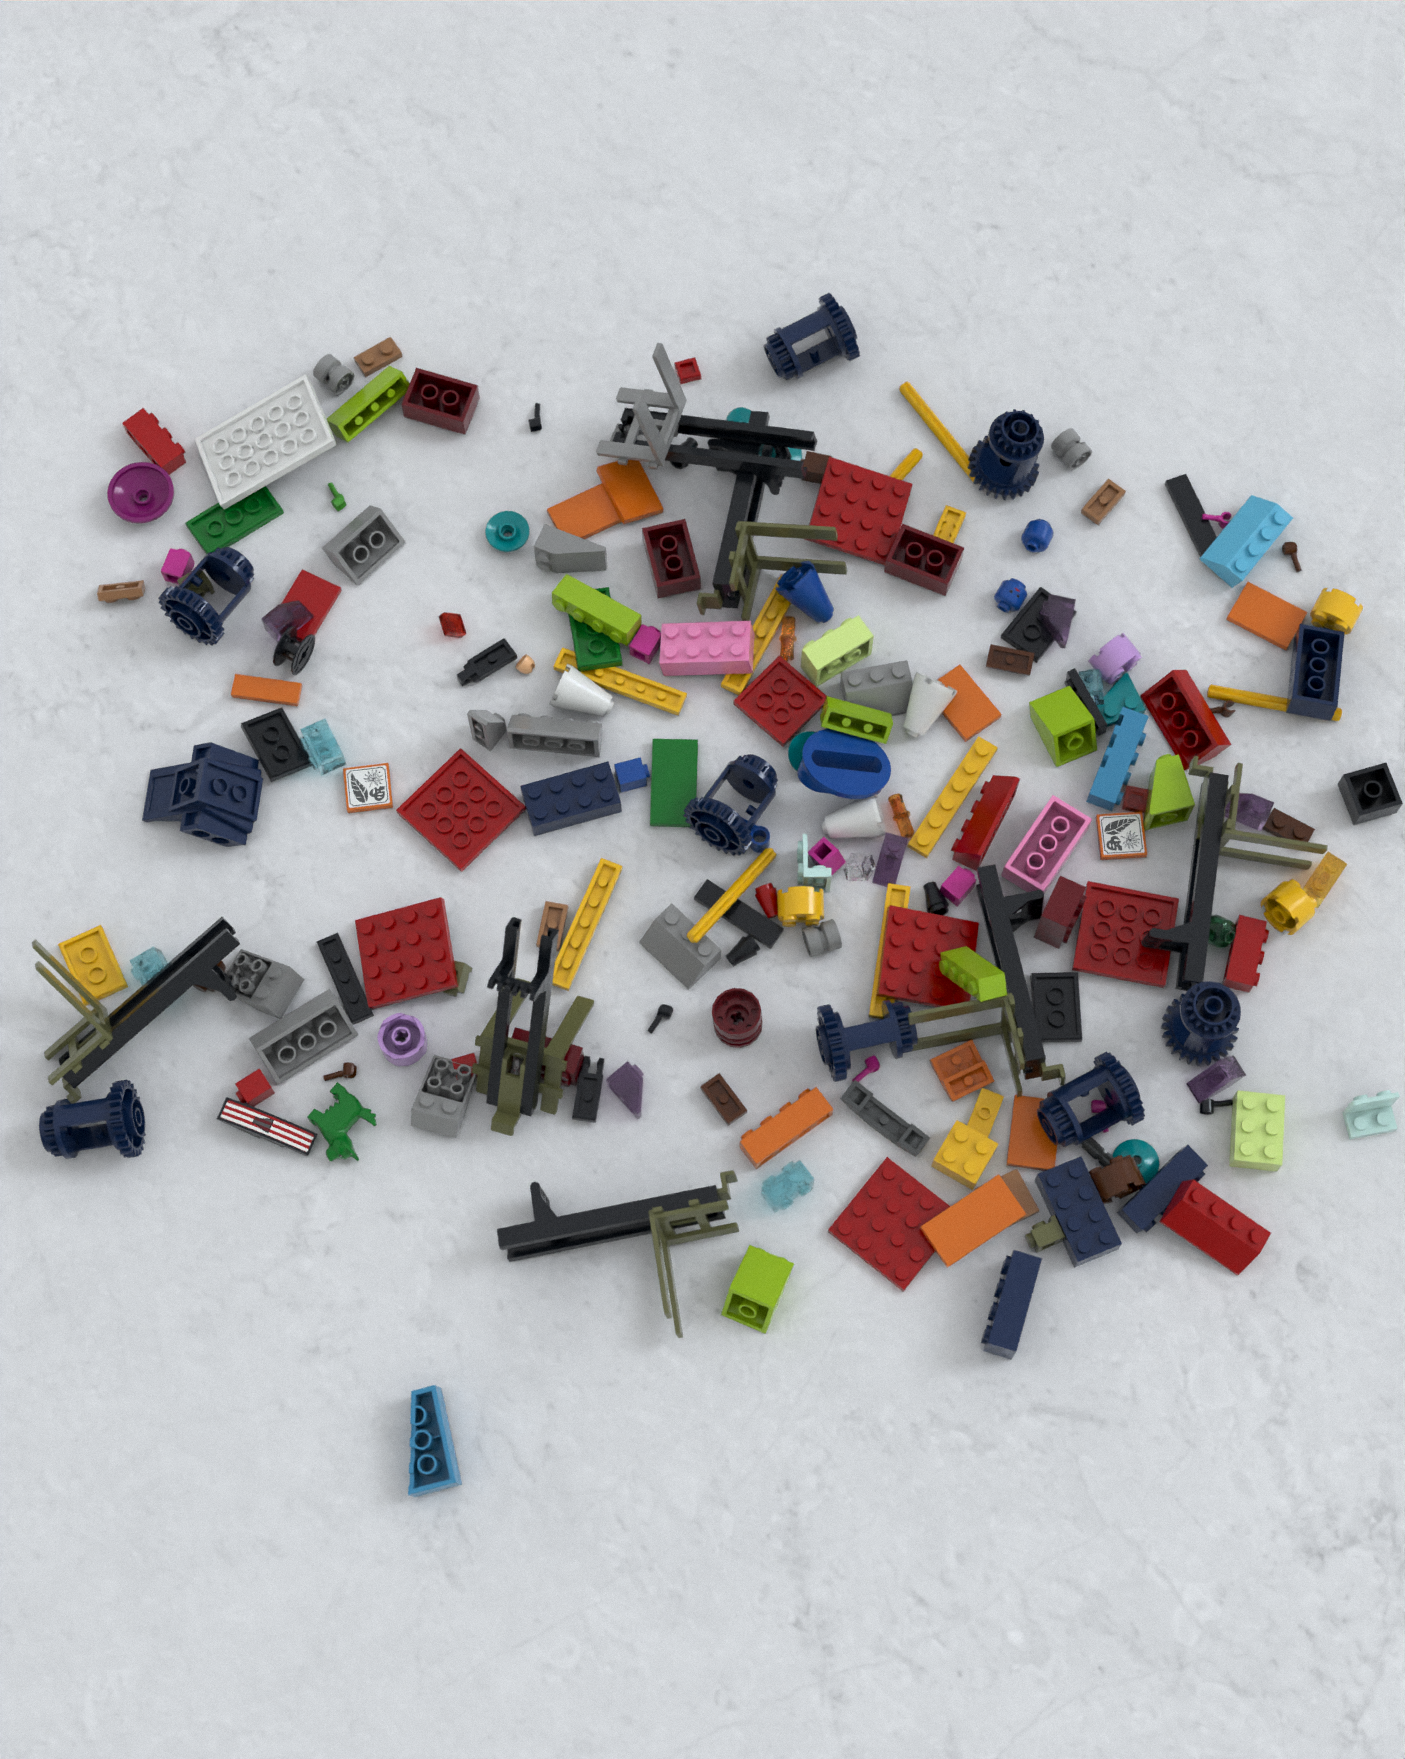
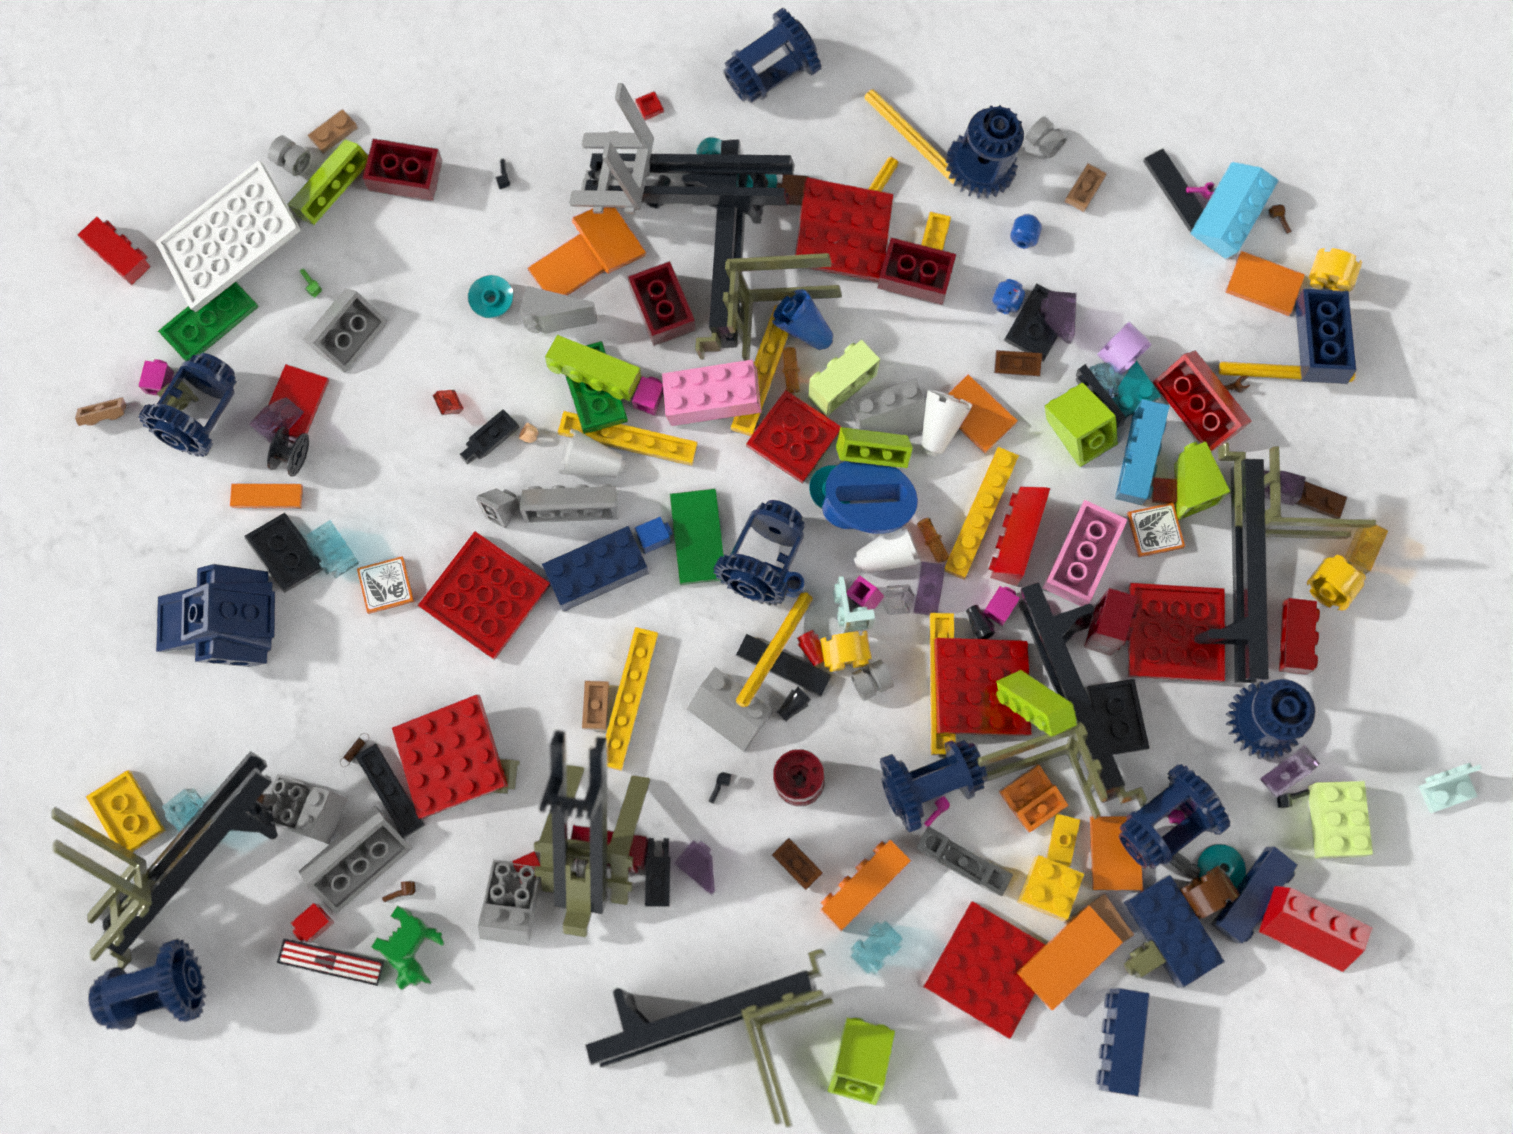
camera: 10 degrees left, 5 degrees up
(138, 482) = (101, 295): magenta dish -> none
(312, 940) = (354, 750): none -> reddish brown piece
(400, 1052) = (444, 848): lavender brick -> none
(1221, 931) = (1276, 617): clear green head -> none
(1370, 793) = (1397, 453): black brick -> none

